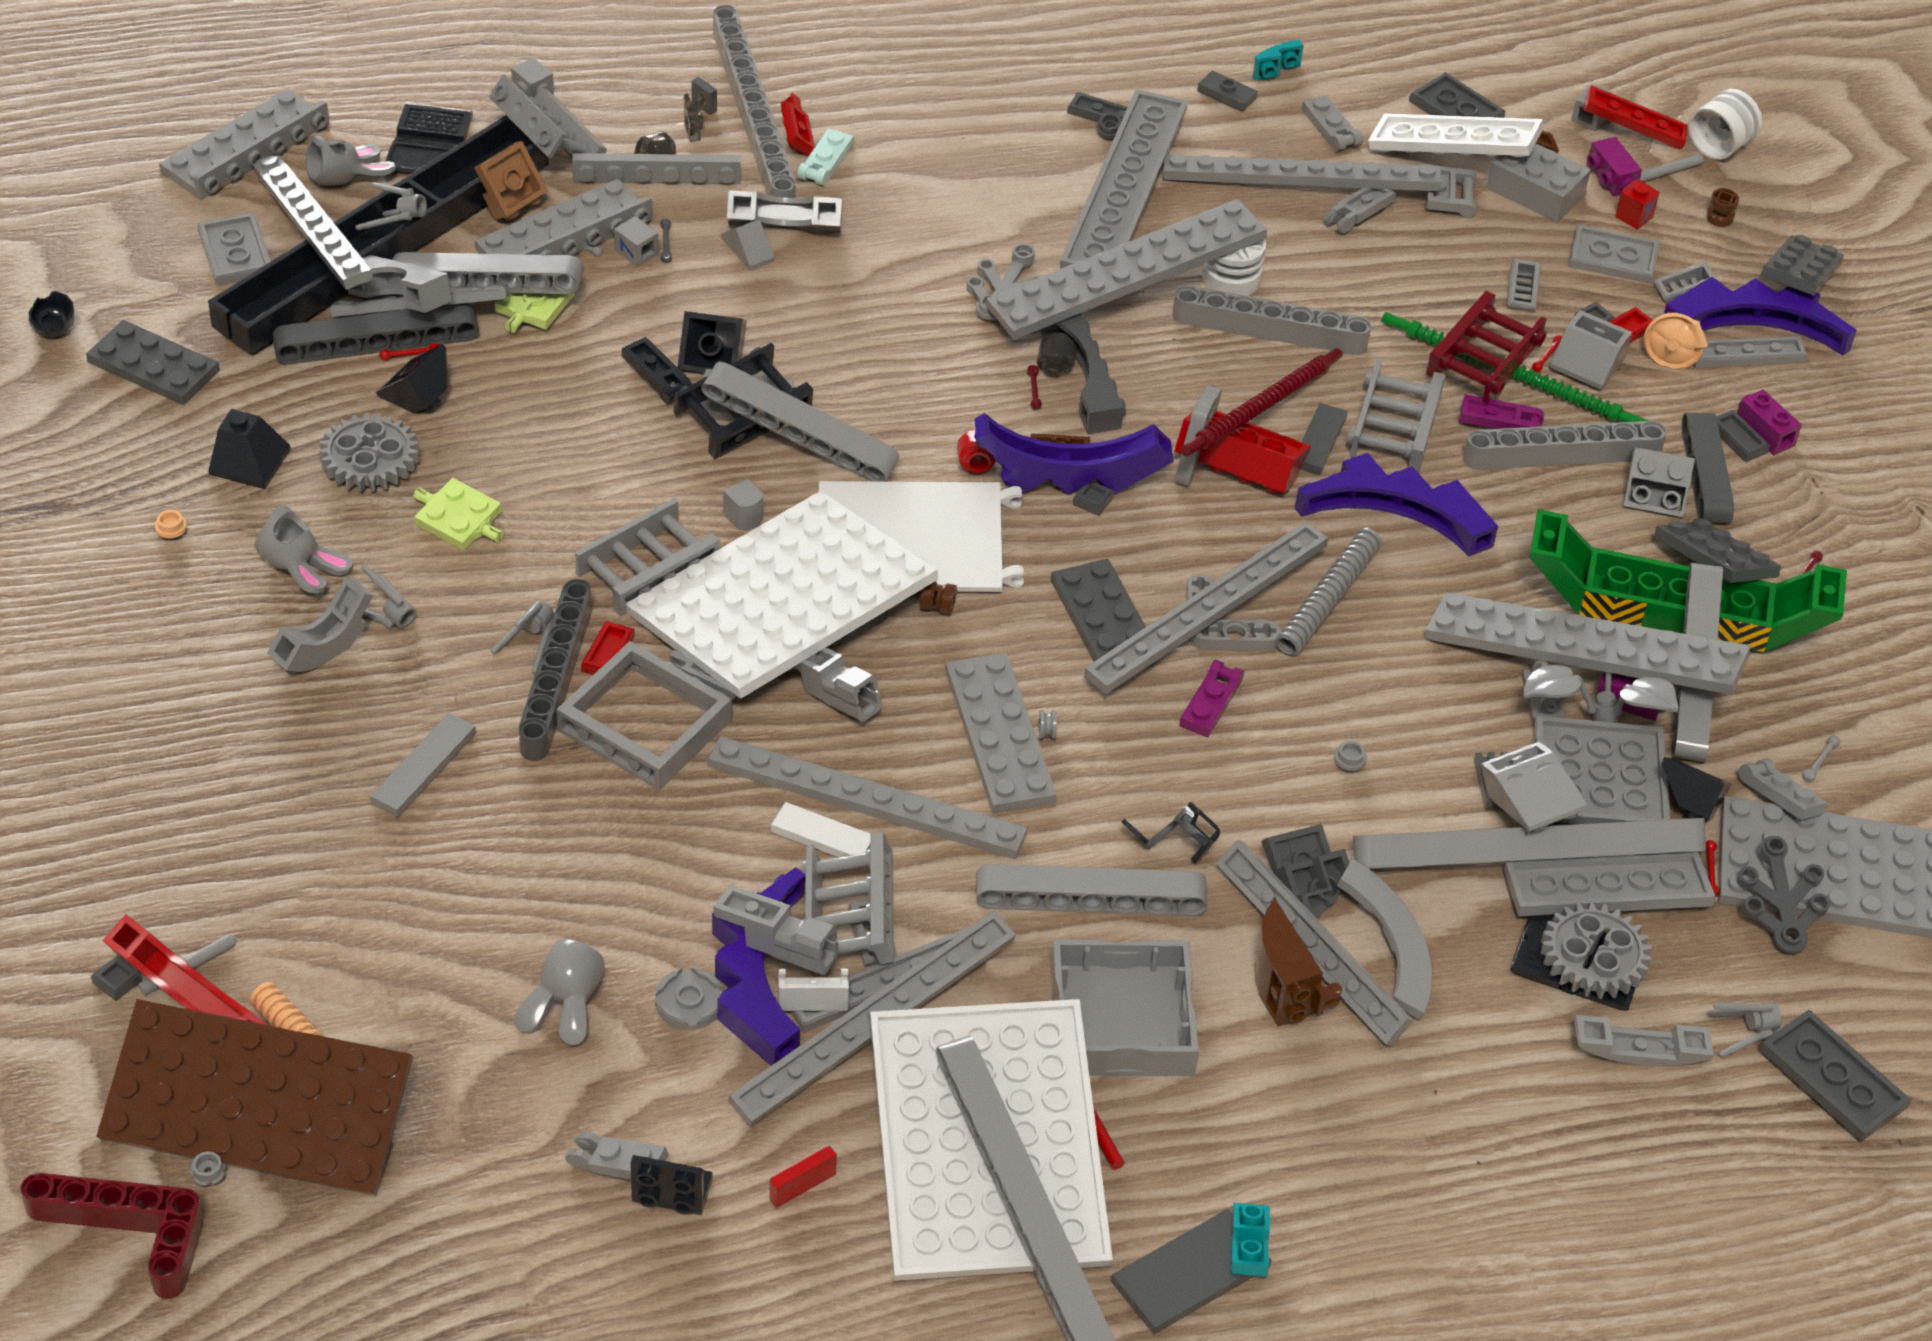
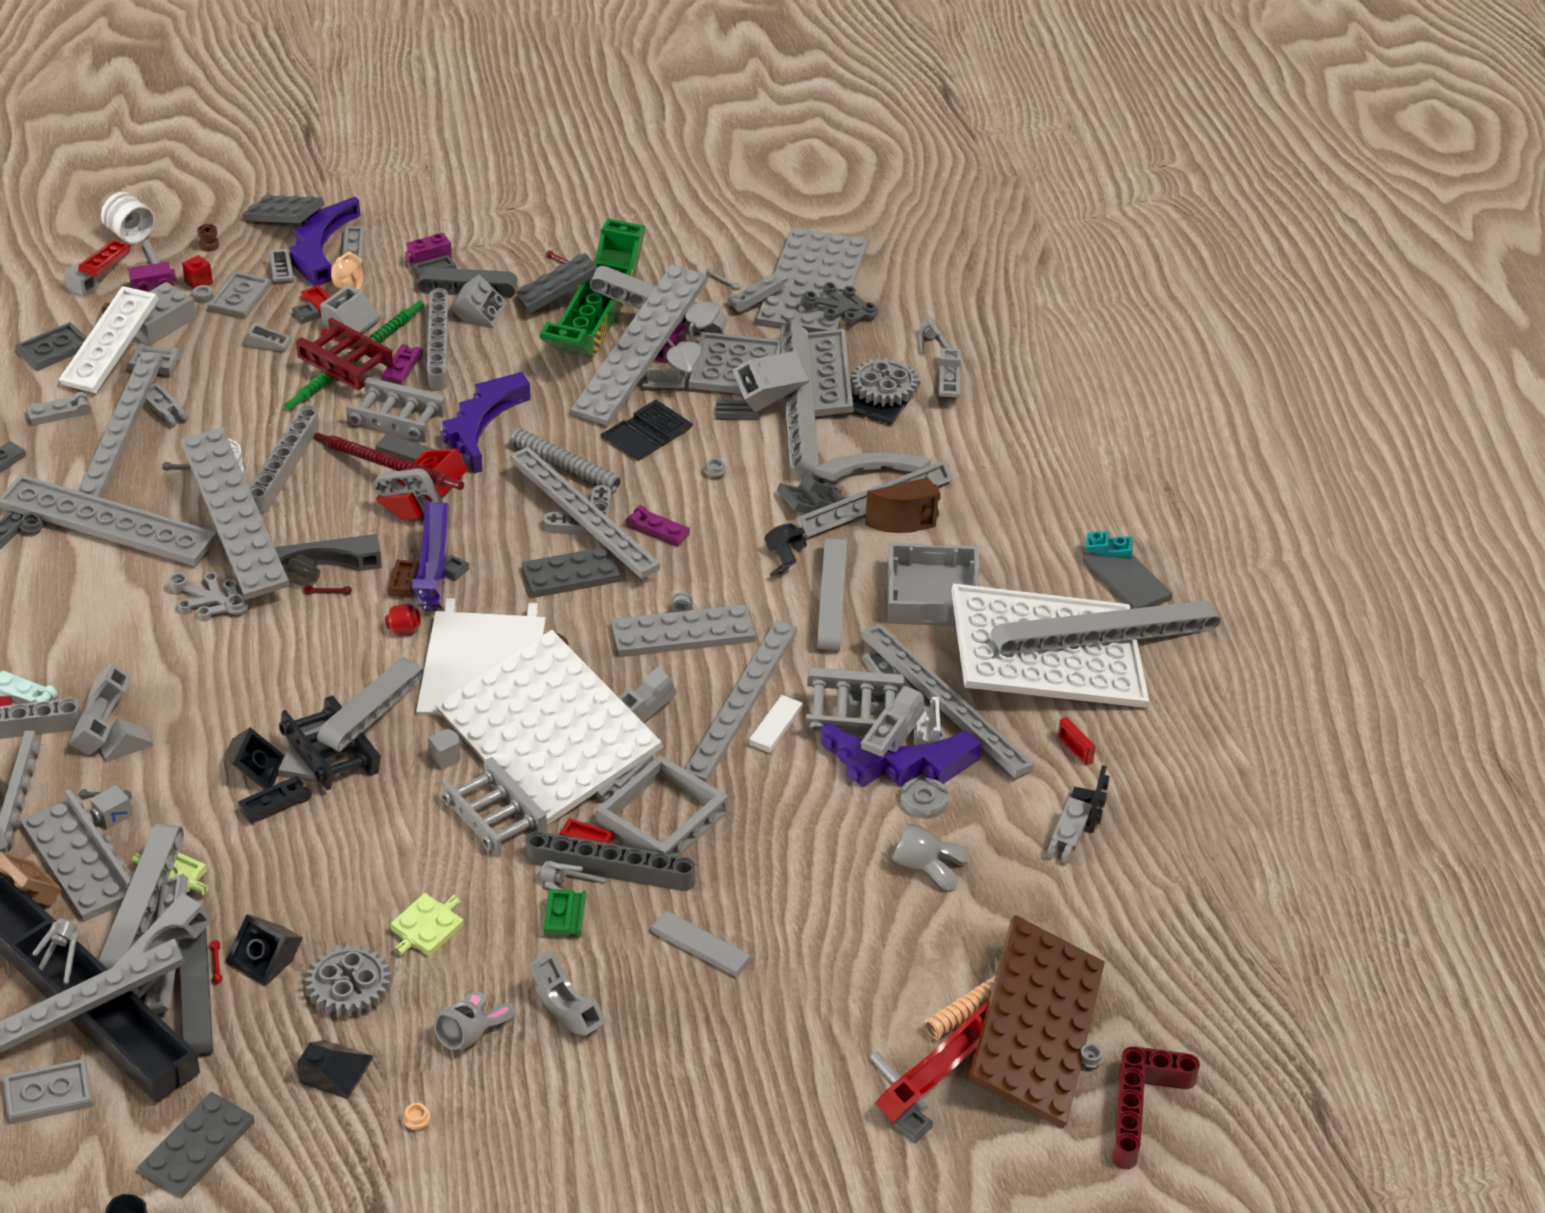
camera: 85 degrees left, 5 degrees down
(396, 608) = (519, 960): light grey plant -> none
(471, 631) = (564, 913): none -> green plate
(1425, 682) = (647, 430): none -> black piece
(1605, 219) = (202, 294): none -> light grey tile
(1695, 789) = (756, 324): black slope -> none
(1835, 1075) = (969, 309): dark grey plate -> none

